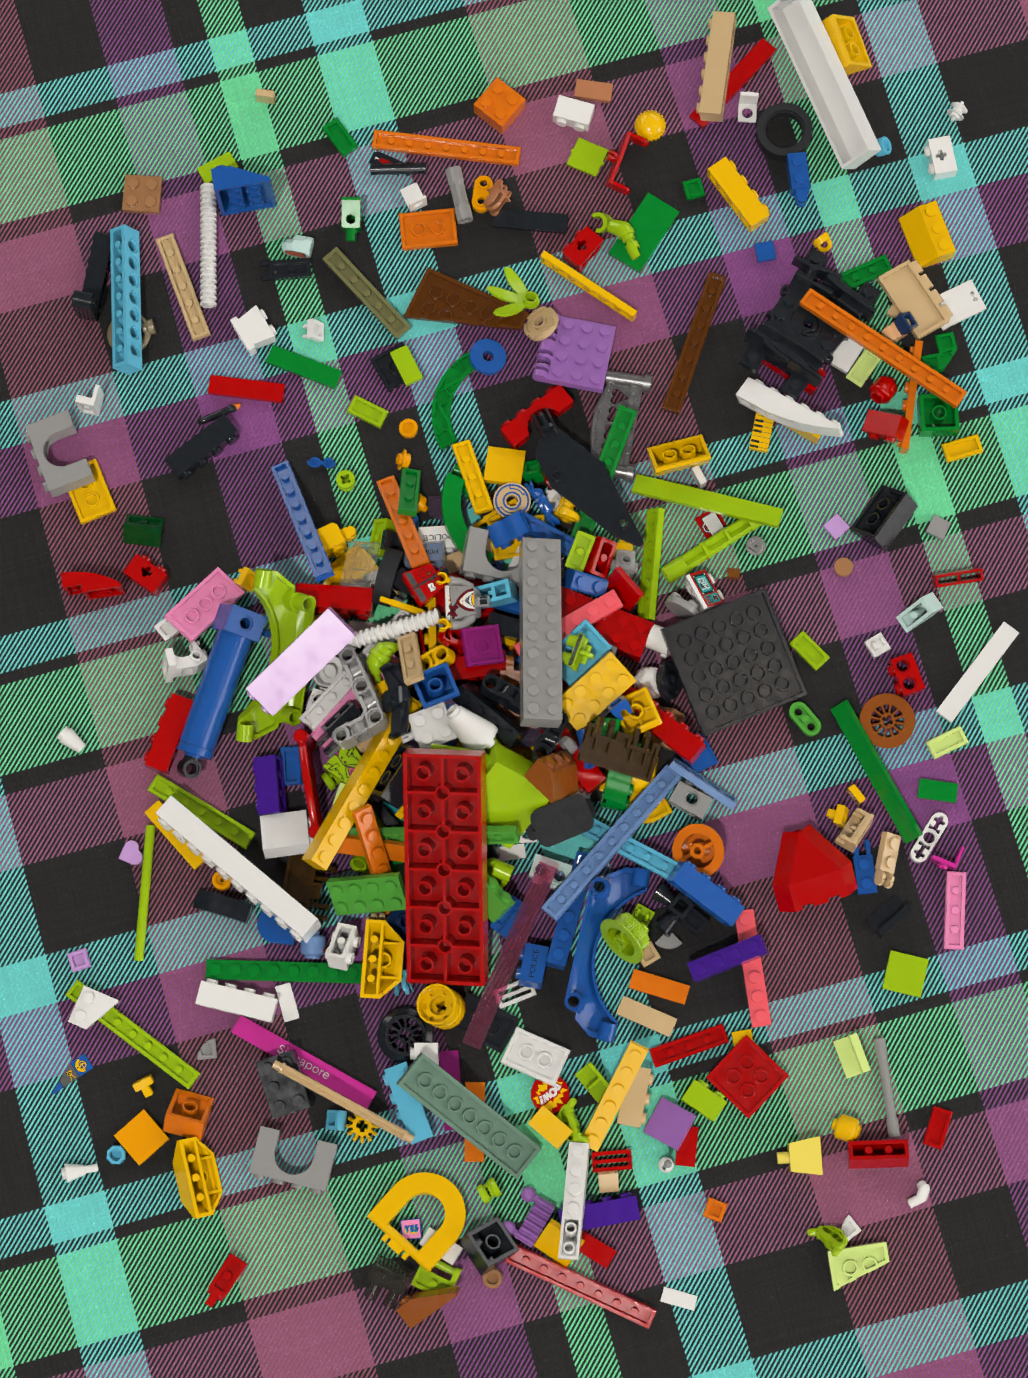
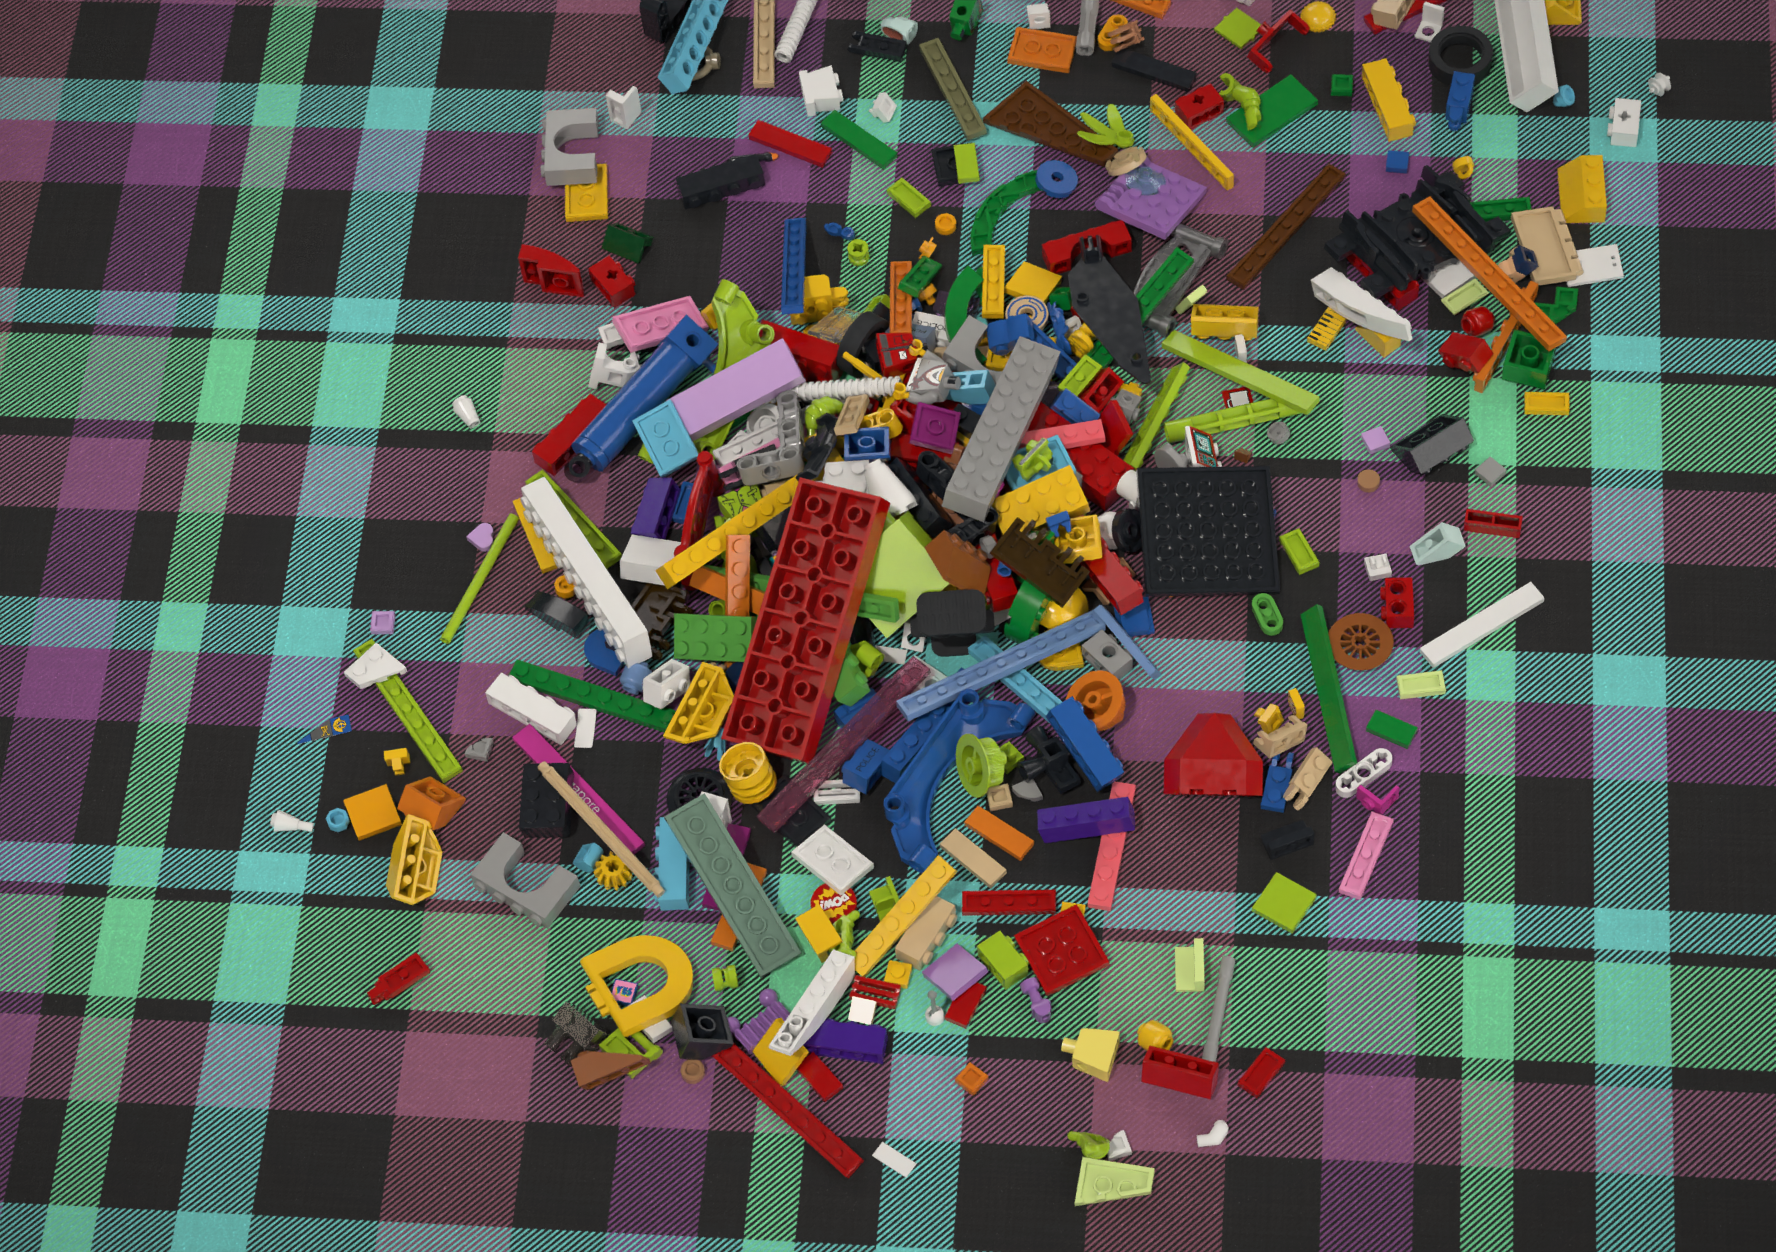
camera: 25 degrees right, 20 degrees down
(257, 722) = (666, 438): none -> medium azure tile
(562, 343) = (1145, 180): none -> clear light blue dish
(624, 1138) = (898, 973): none -> yellow plate
(644, 444) = (1191, 299): none -> yellowish green tile
(747, 1132) = (1040, 1007): none -> medium lavender leg

